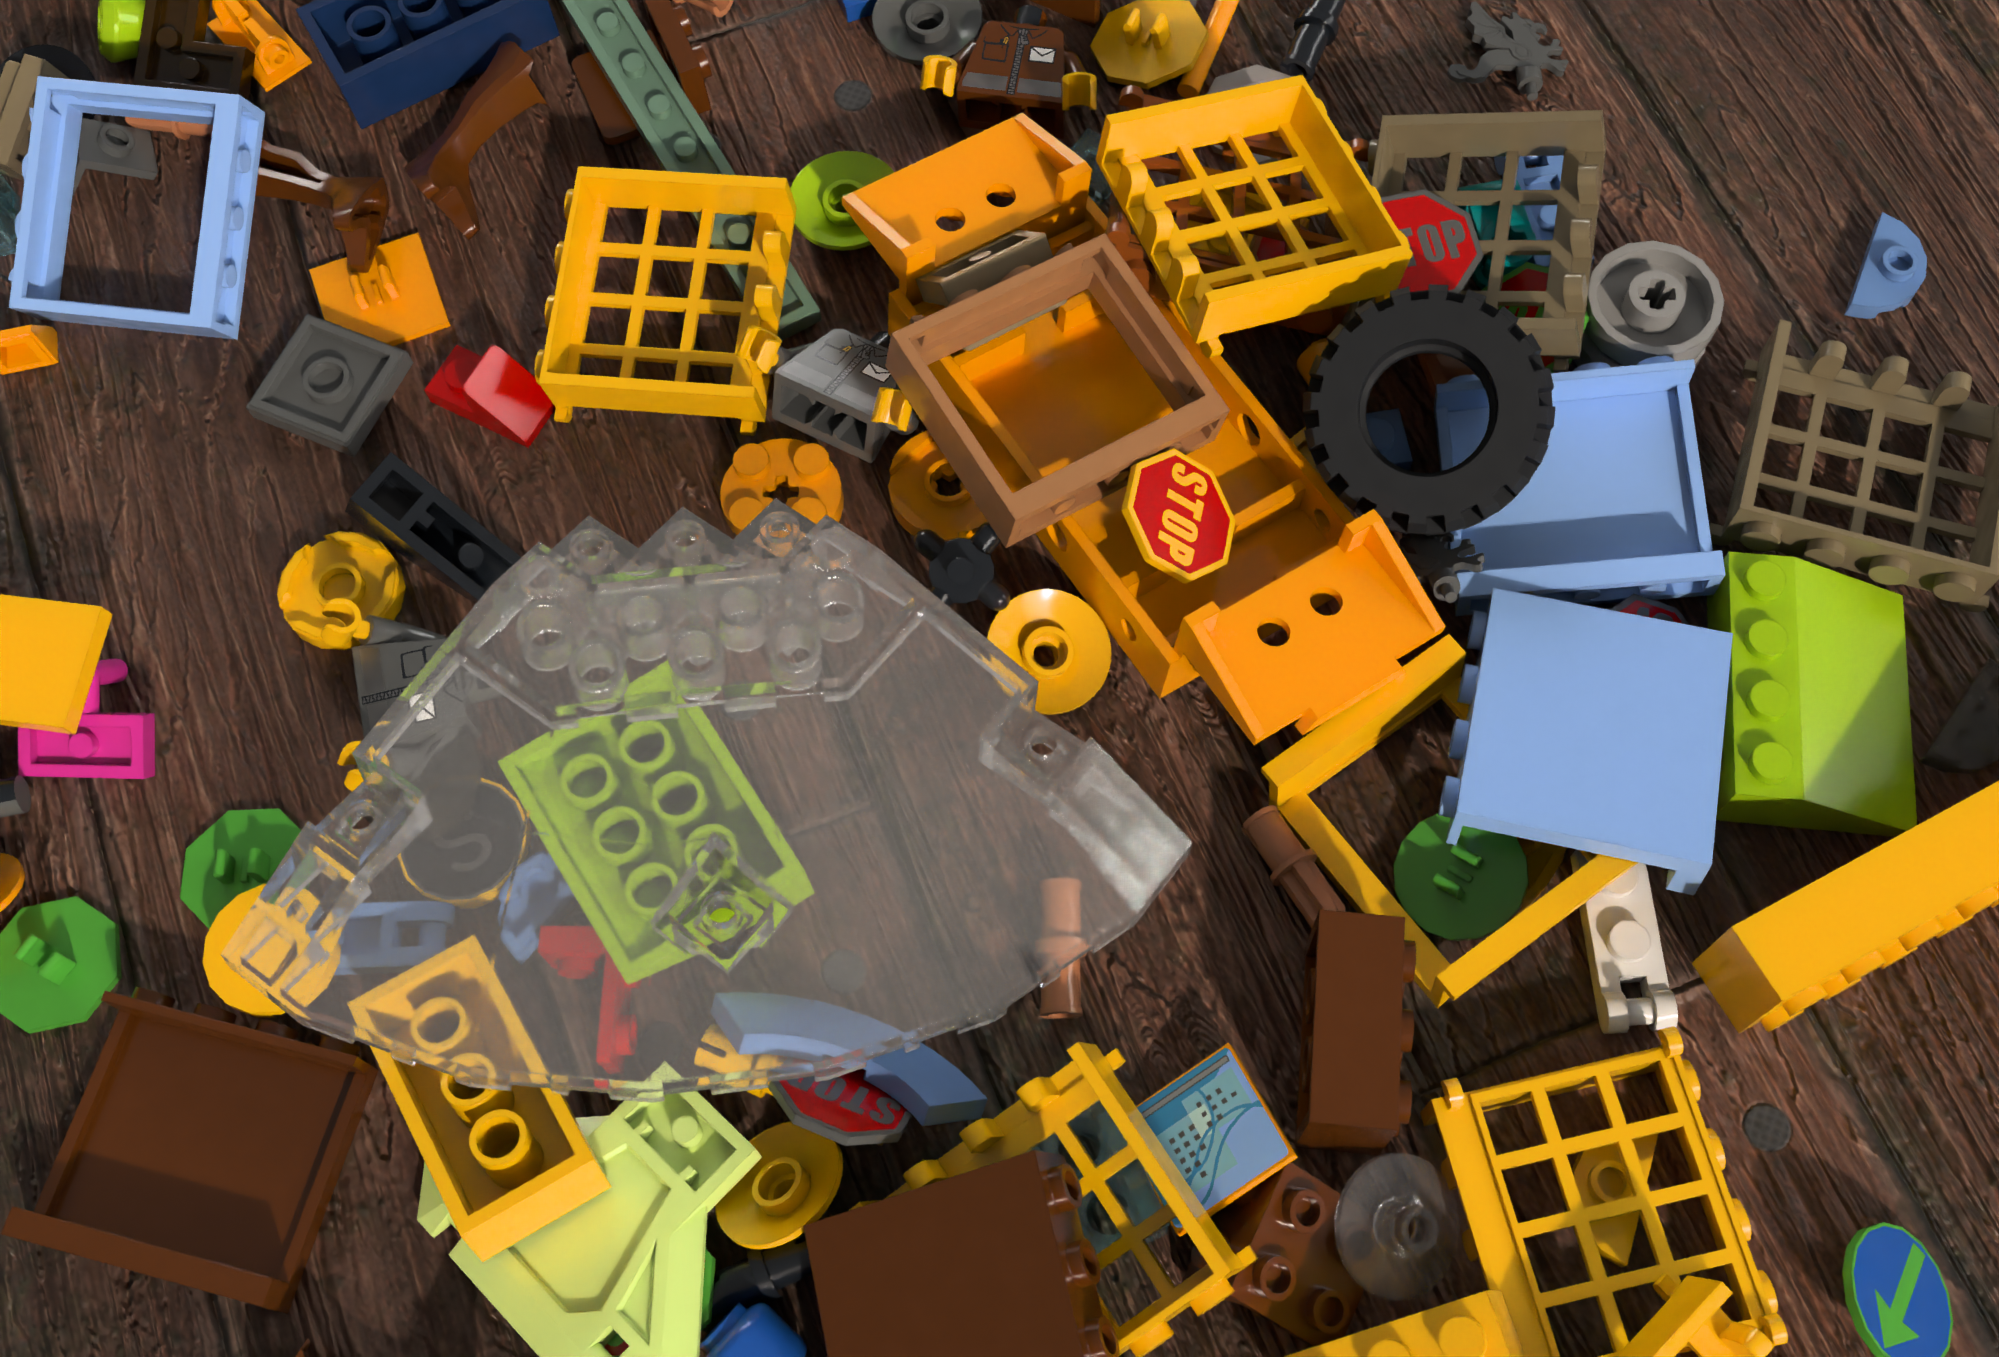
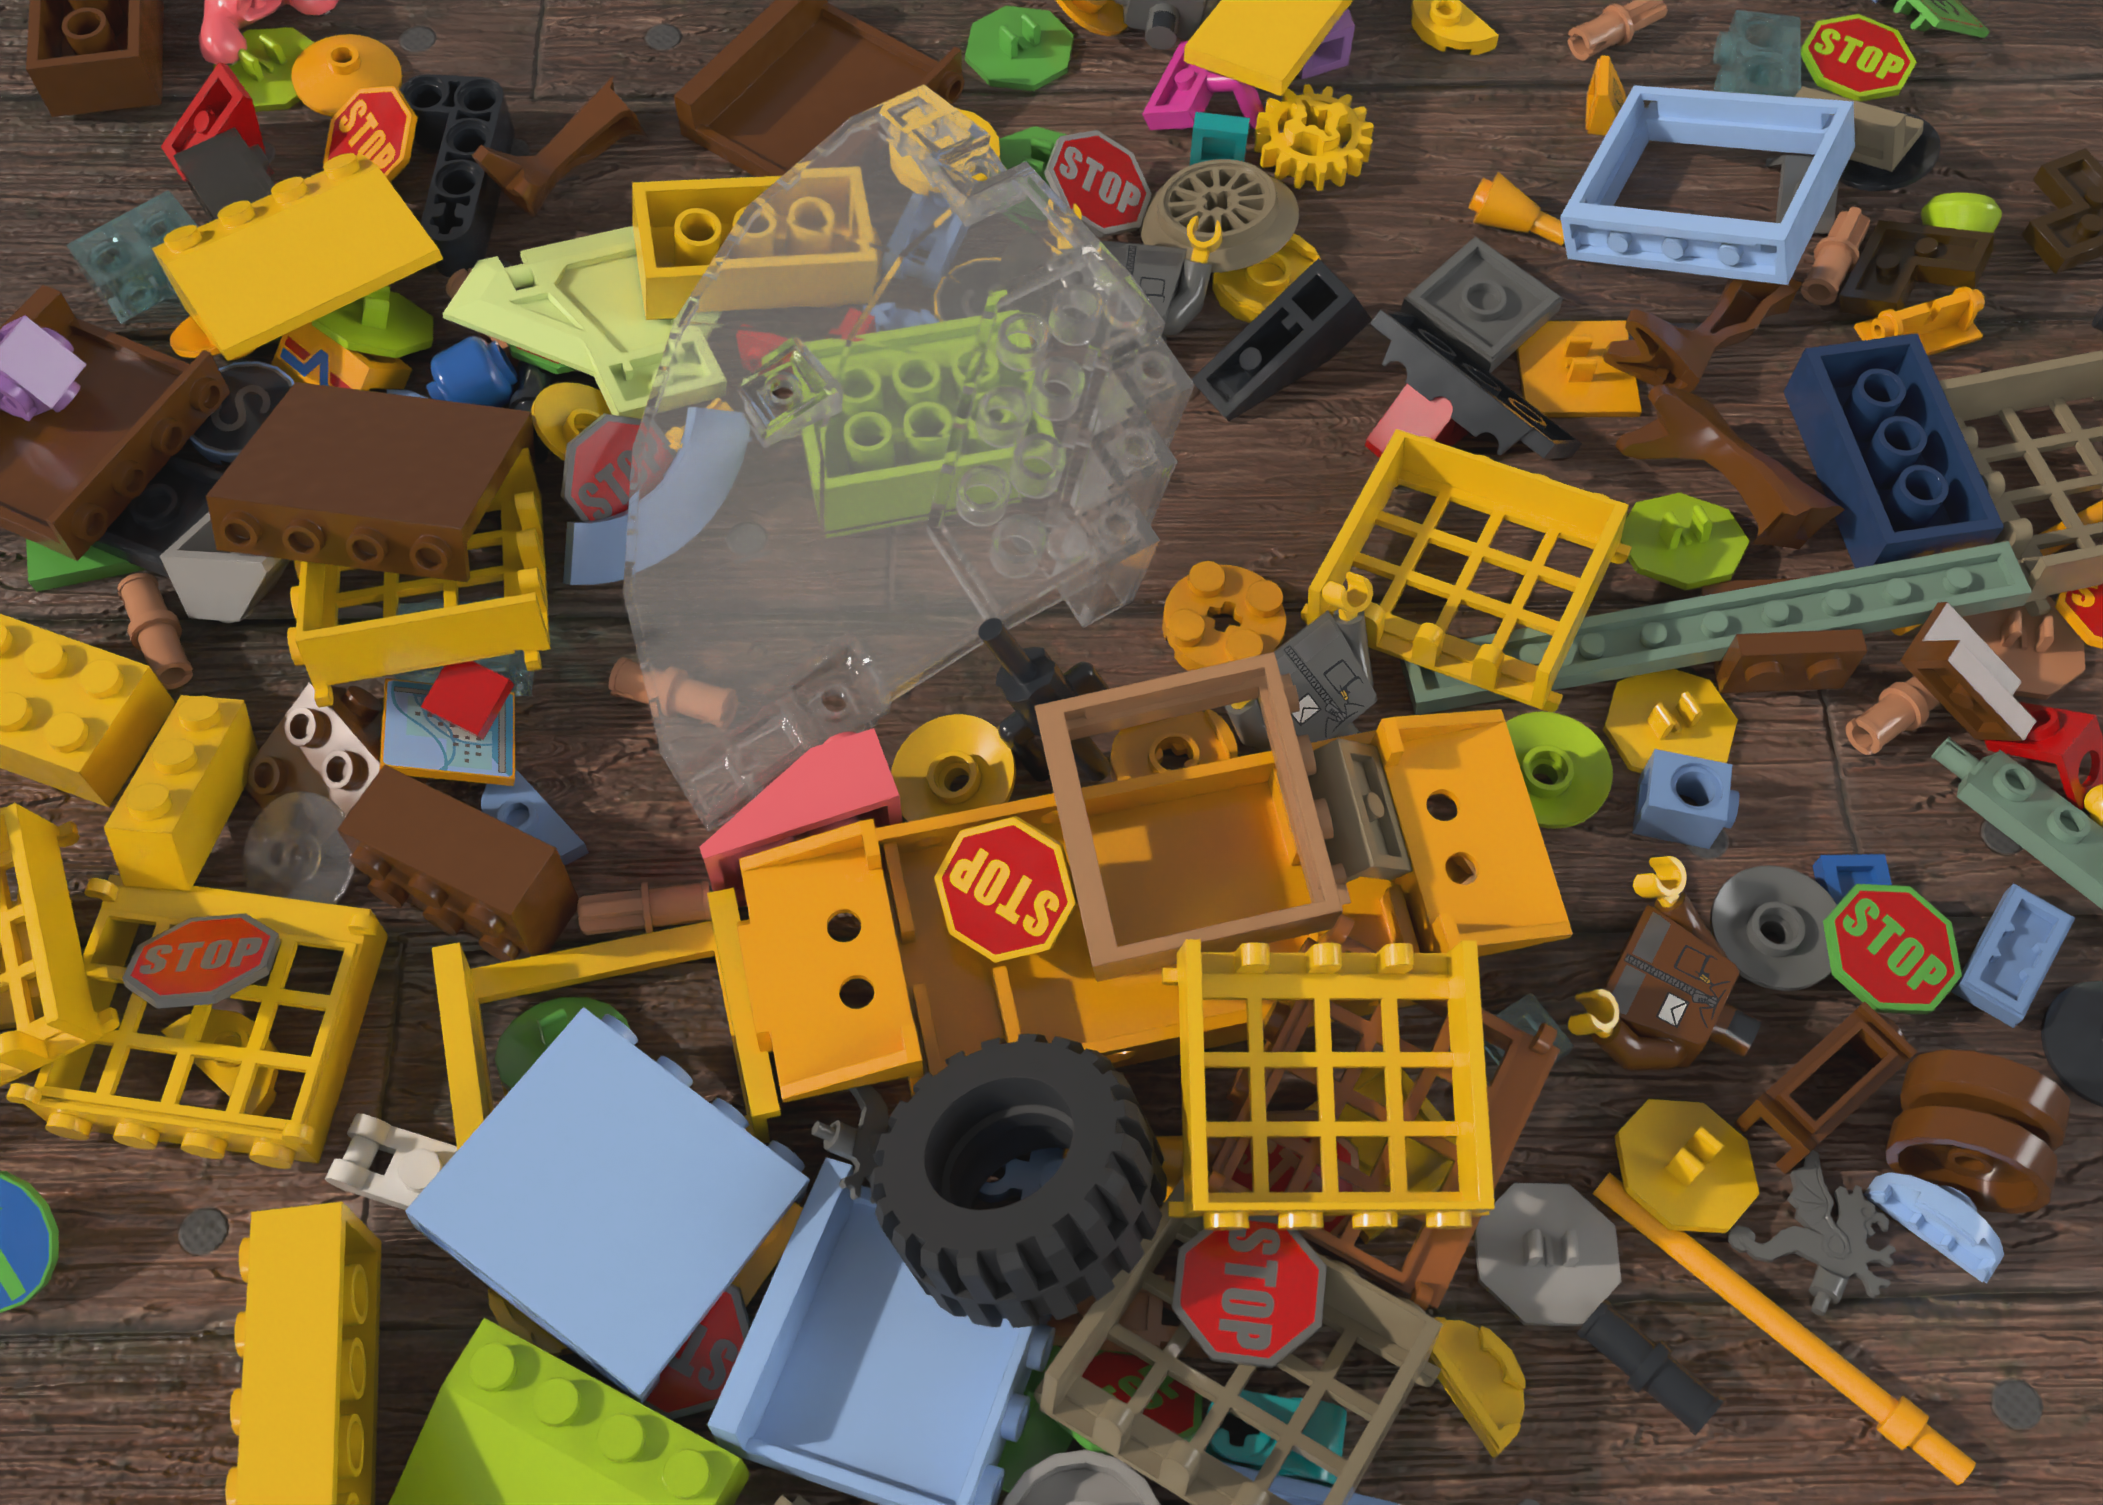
camera: 105 degrees right, 5 degrees down
(147, 588) = (1313, 137): none -> yellow gear
(170, 683) = (1218, 137): none -> teal tile
(192, 398) = (1507, 207): none -> light orange cone
(267, 781) = (1100, 180): none -> piece
(290, 715) = (1251, 206): none -> dark tan piece
(455, 350) = (1477, 397): none -> black piece
(547, 160) = (1683, 541): none -> lime piece
(760, 134) = (1668, 714): none -> yellow piece
(834, 103) = (1667, 817): none -> medium blue brick
(1163, 732) = (819, 792): none -> coral slope
(1175, 1118) = (468, 697): none -> red tile
(1260, 1021) = (529, 812): none -> medium blue plate
(1366, 113) = (1481, 1381): none -> yellow plate
(1577, 1208) = (201, 961): none -> piece

